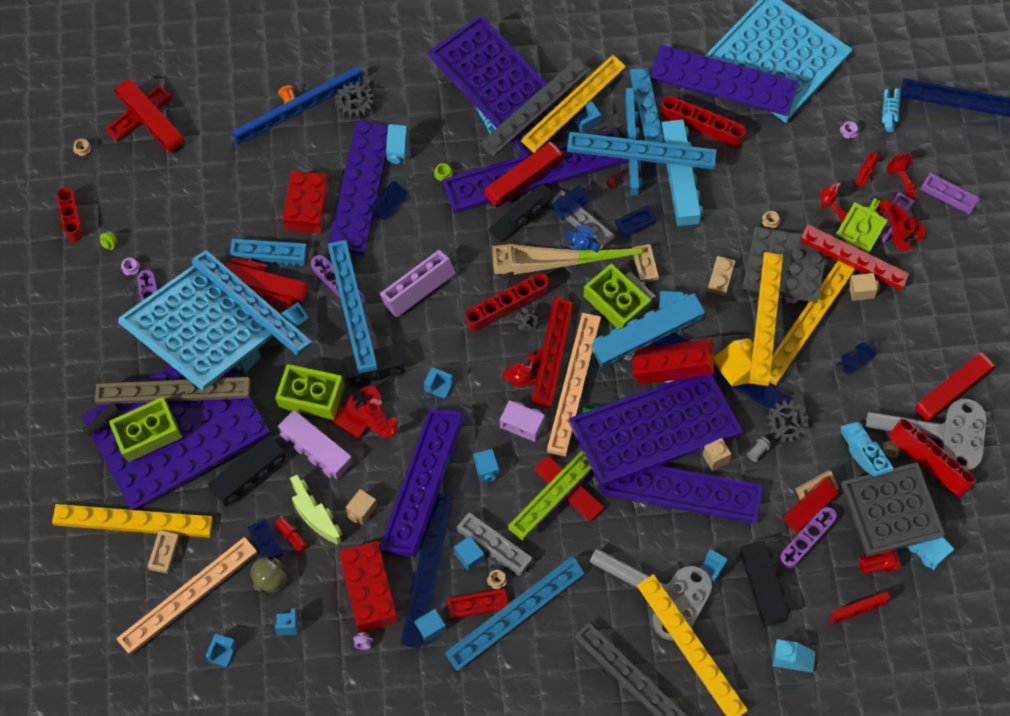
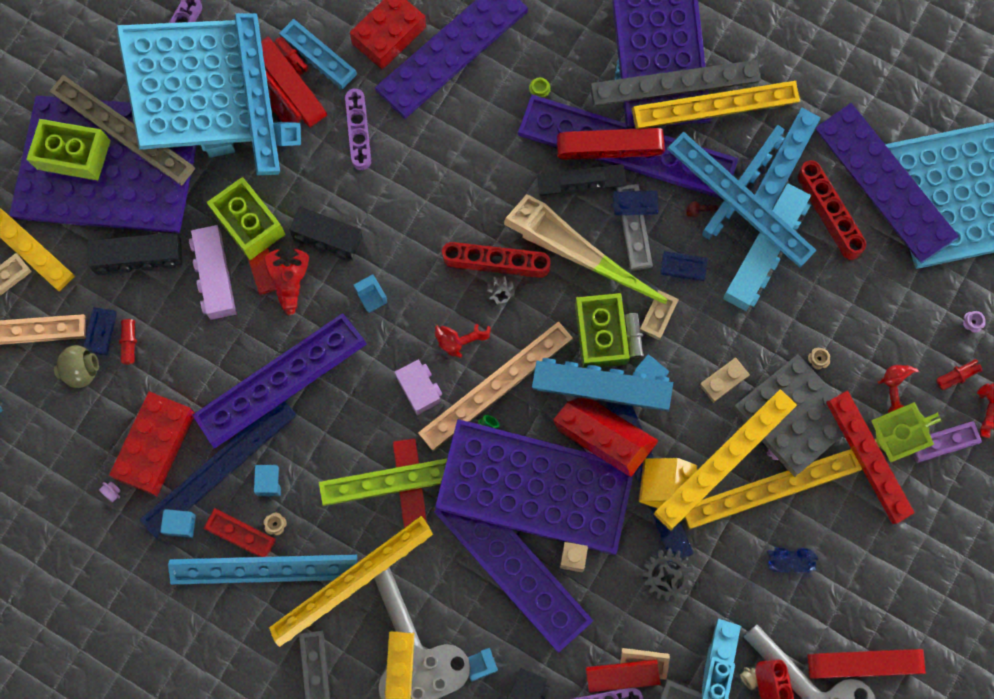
camera: 35 degrees right, 10 degrees up
(101, 420) = (42, 112): clear smoke pin -> none
(287, 623) = (58, 424): dark azure panel -> none
(314, 515) = (160, 342): yellowish green slope -> none
(352, 307) = (346, 163): dark azure plate -> none
(361, 507) = (206, 362): tan brick -> none
(388, 200) = (465, 80): clear blue plate -> none
(397, 144) = (515, 30): medium azure slope -> none
(417, 283) = (426, 182): lavender brick -> none
(486, 465) = (350, 407): dark azure brick -> none
(494, 544) = (298, 488): light grey gear -> none
(552, 352) = (500, 339): red plate -> none
(582, 239) = (616, 248): blue piece -> none
(582, 574) = (350, 581): none -> yellow plate
(588, 119) = (720, 129): dark azure panel -> none
(760, 447) = (620, 581): light grey pin -> none
(863, 286) = (856, 493): tan brick -> none
(901, 224) = (946, 458): red animal -> none

